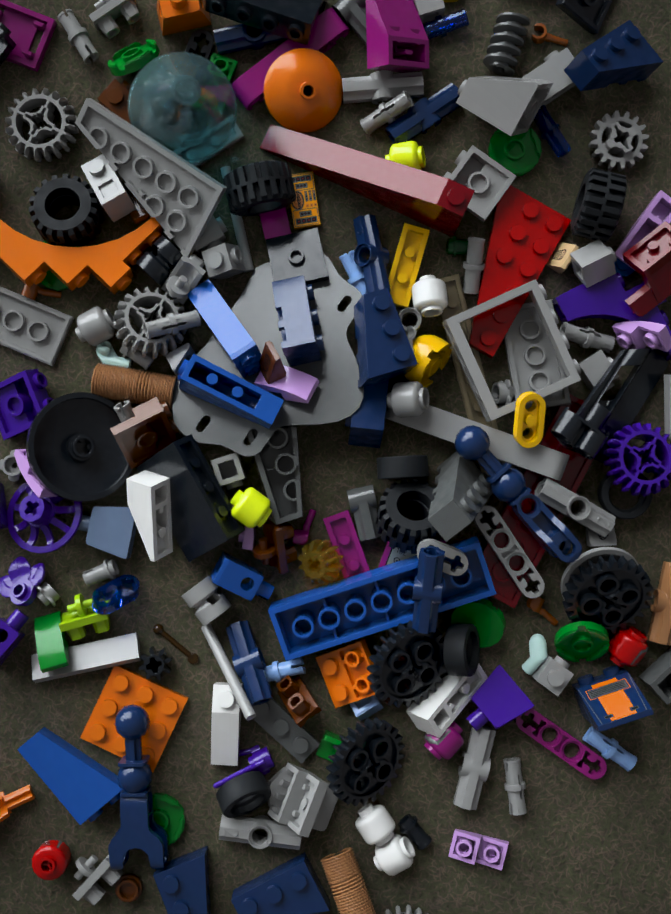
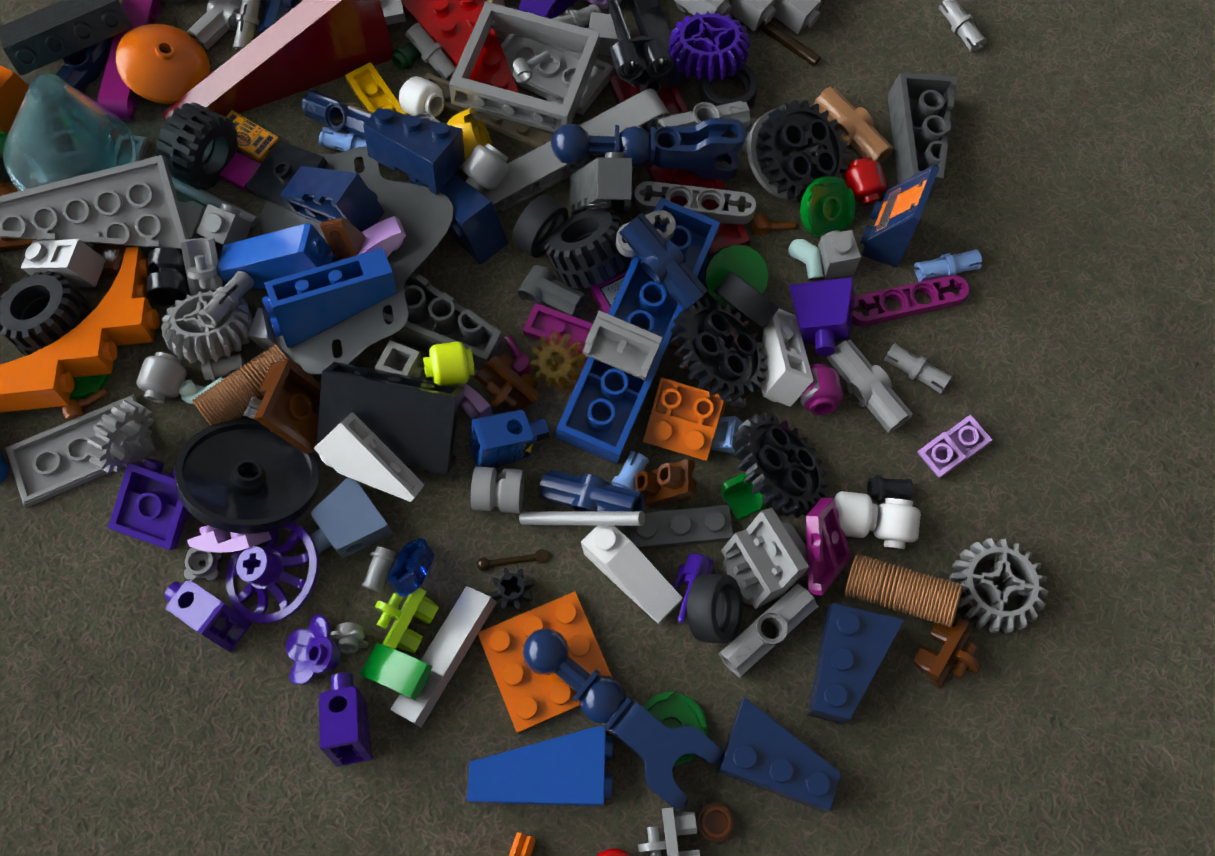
camera: 45 degrees left, 20 degrees down
(34, 351) = (120, 436): none -> light grey gear
(337, 829) = (826, 546): none -> magenta wing
(352, 608) = (622, 345): none -> light grey hinge
(499, 359) = (522, 68): none -> light grey hand
(529, 418) = (595, 87): yellow plate -> none

